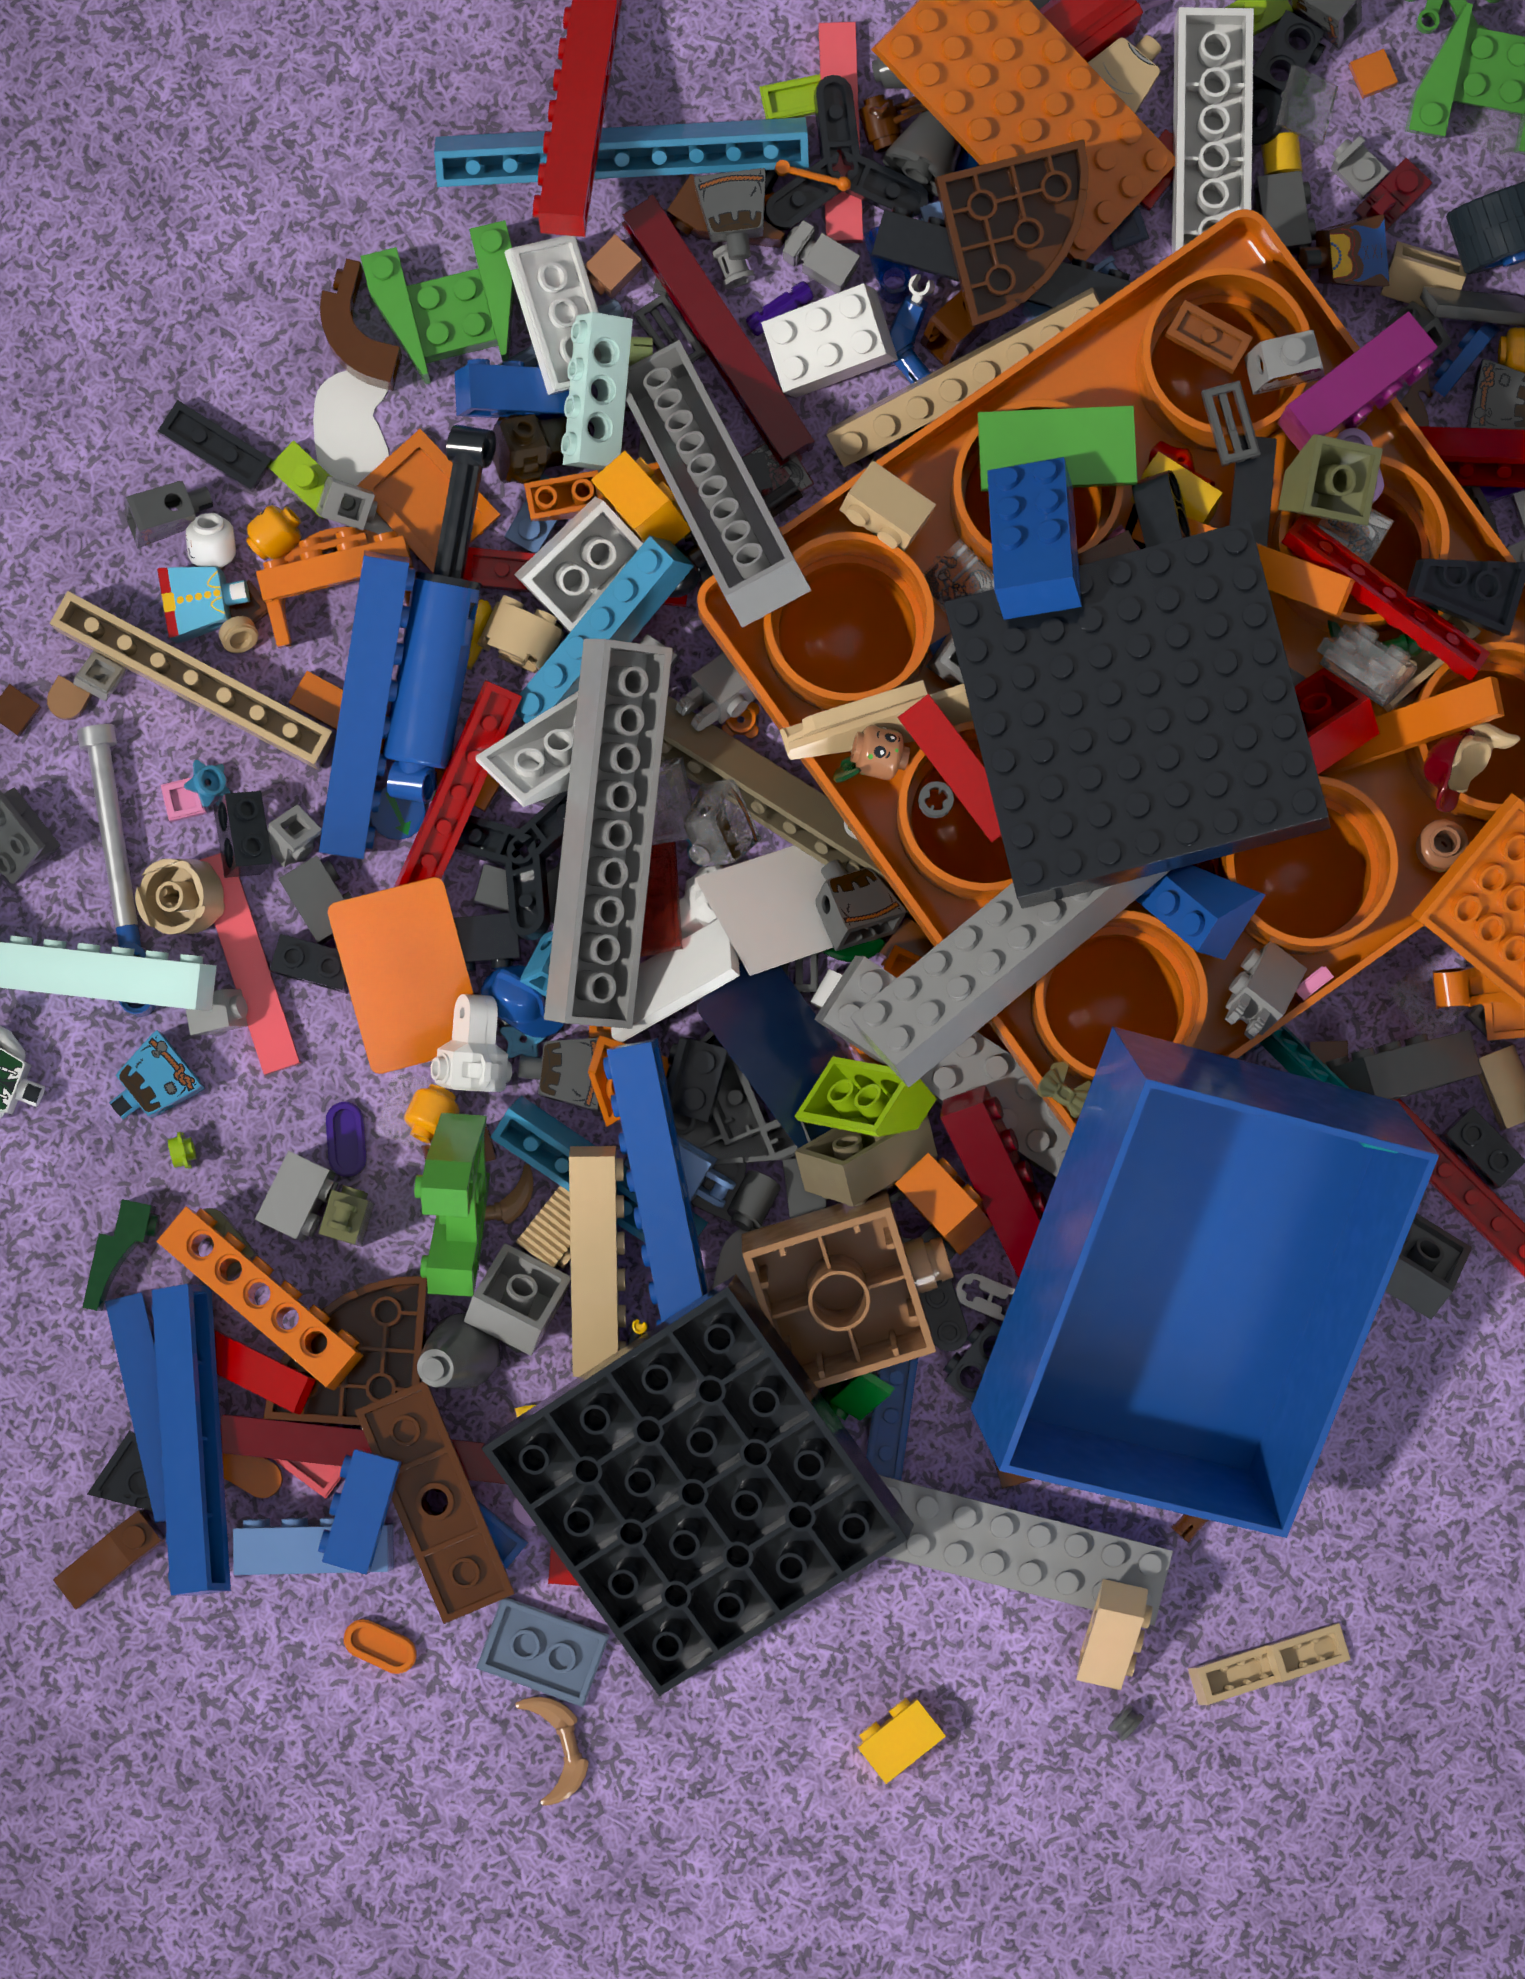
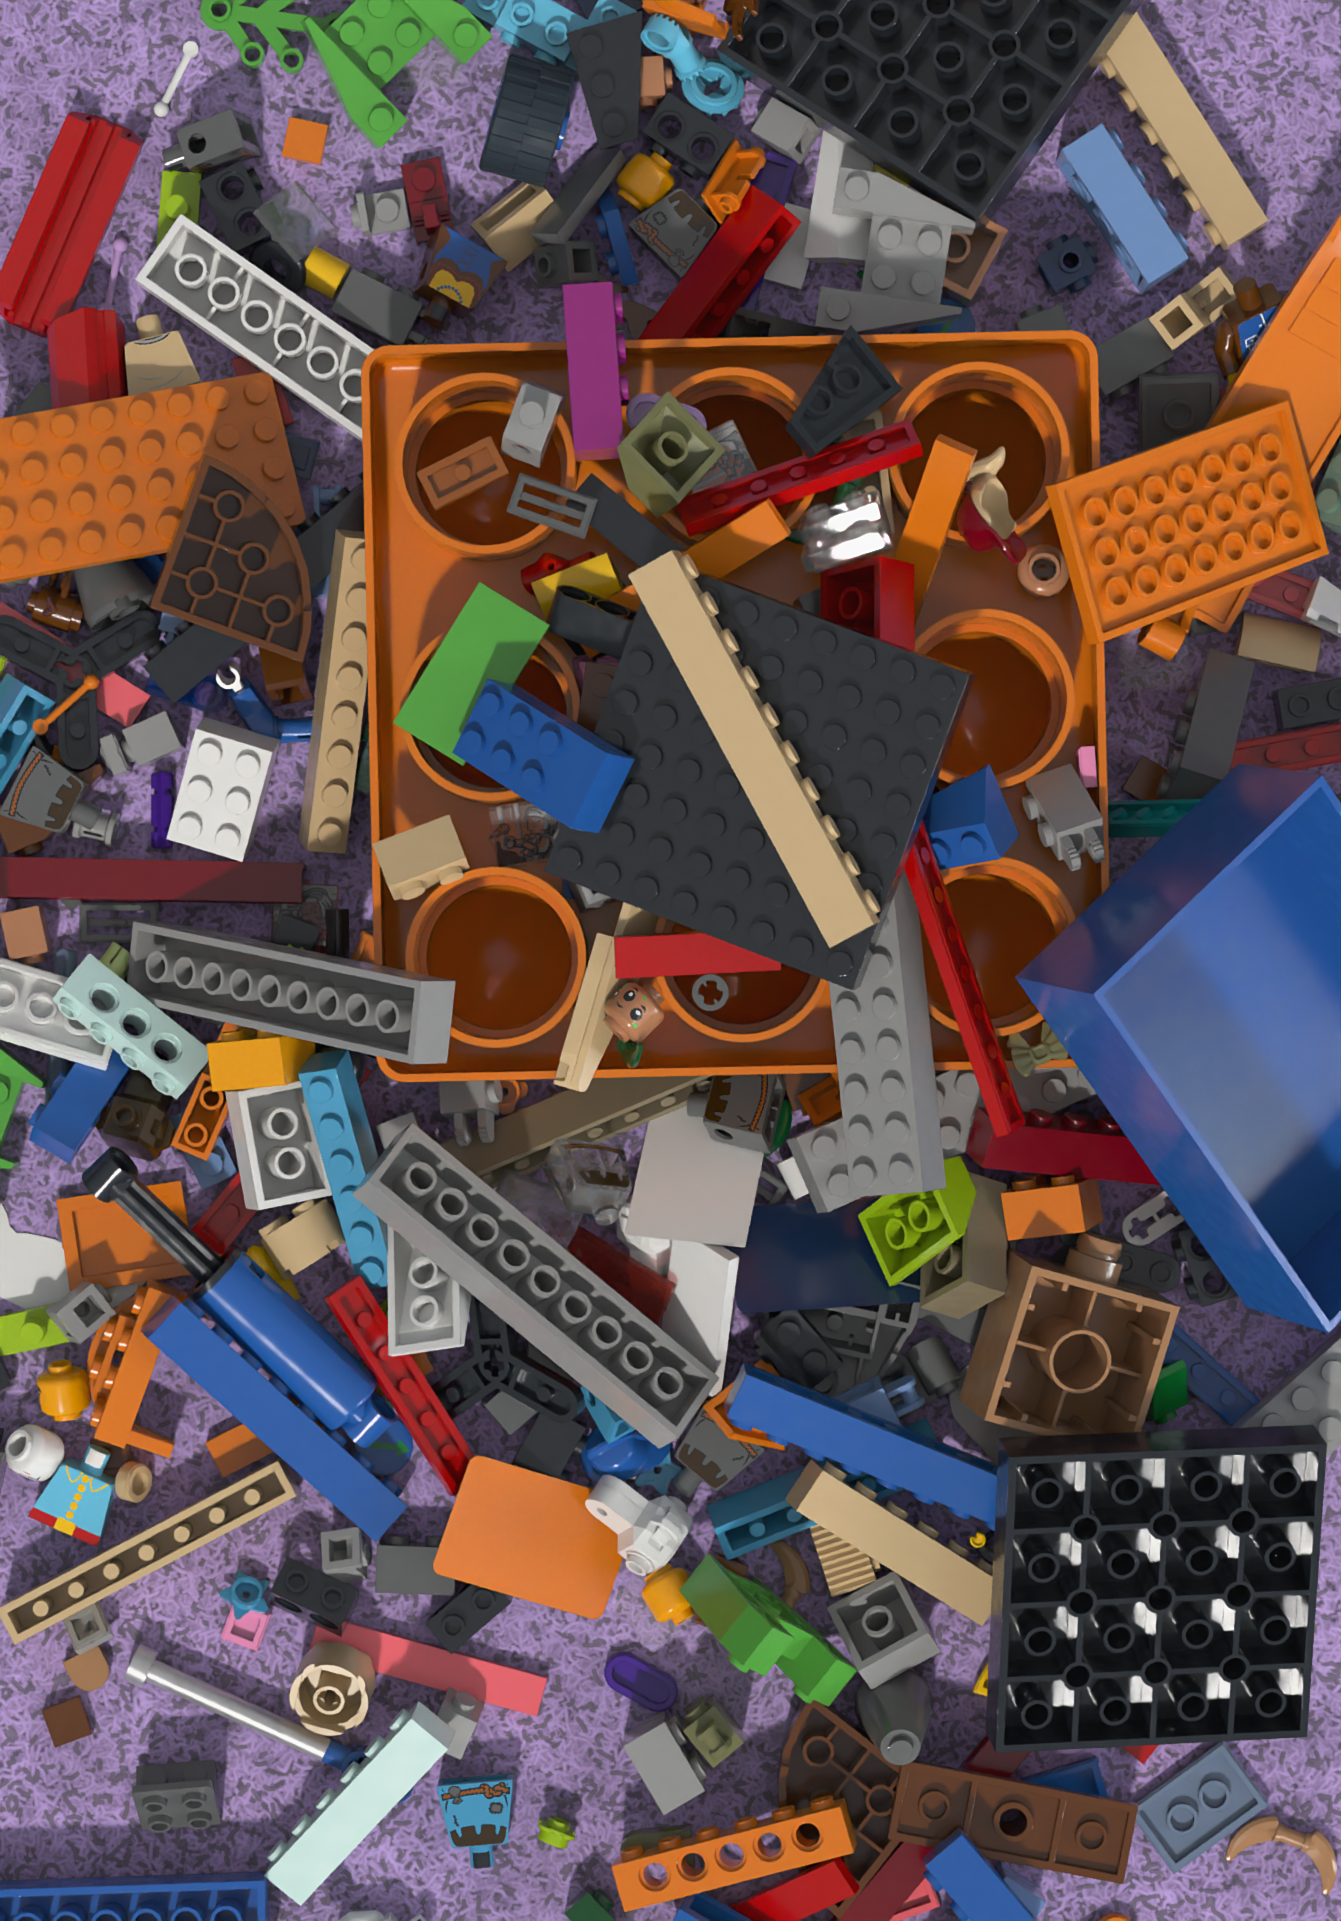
camera: 60 degrees left, 5 degrees up
(1077, 990) = (962, 987): none -> red tile
(1155, 690) = (754, 747): none -> tan brick

